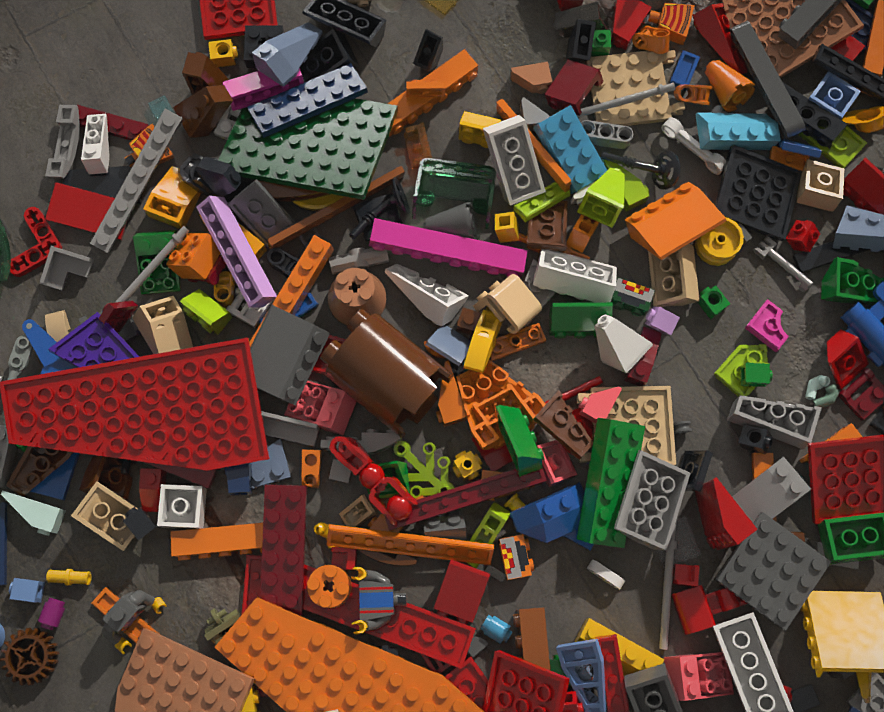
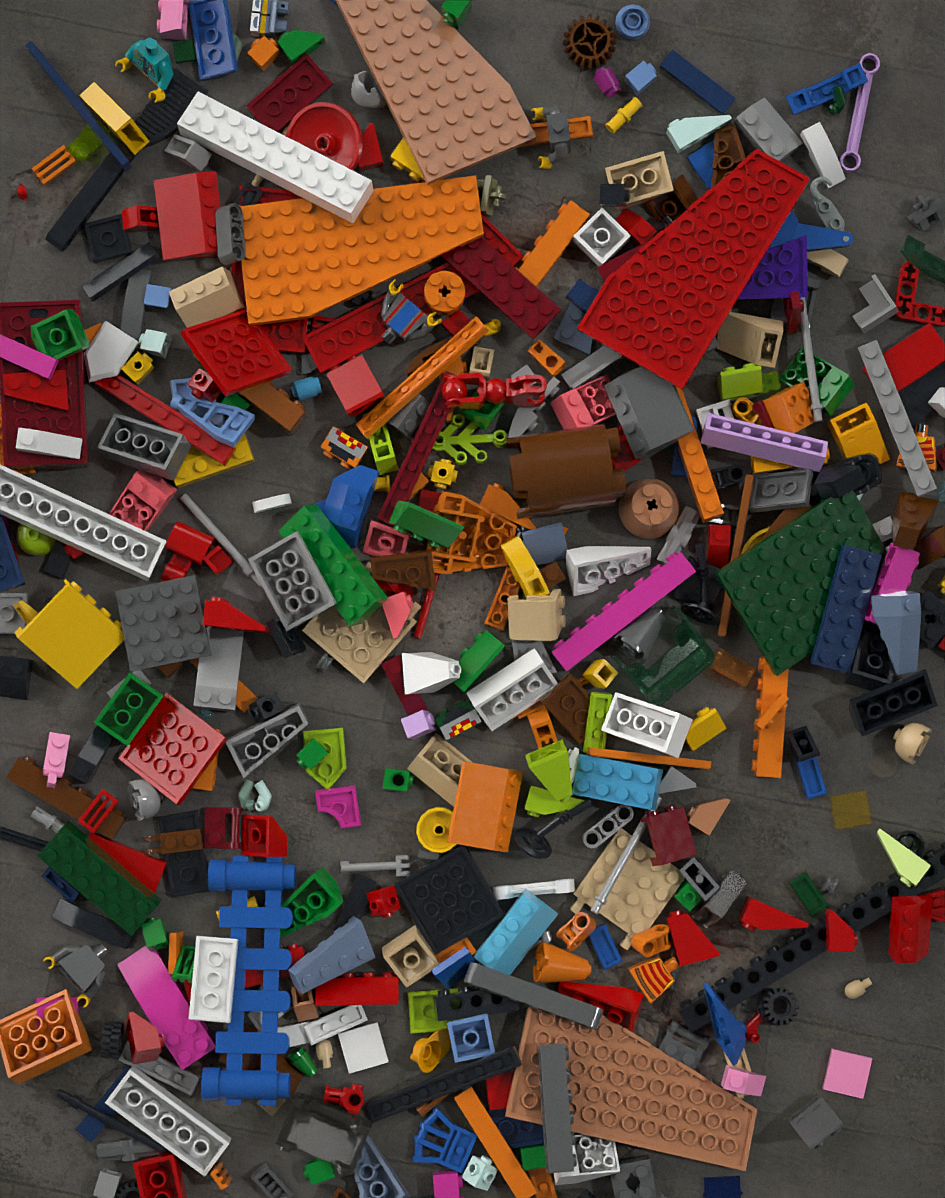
camera: 135 degrees right, 10 degrees up
(186, 288) = (775, 385): none -> clear neon green plate
(338, 227) = (718, 545): none -> red slope
(448, 30) = (811, 778): none -> blue tile

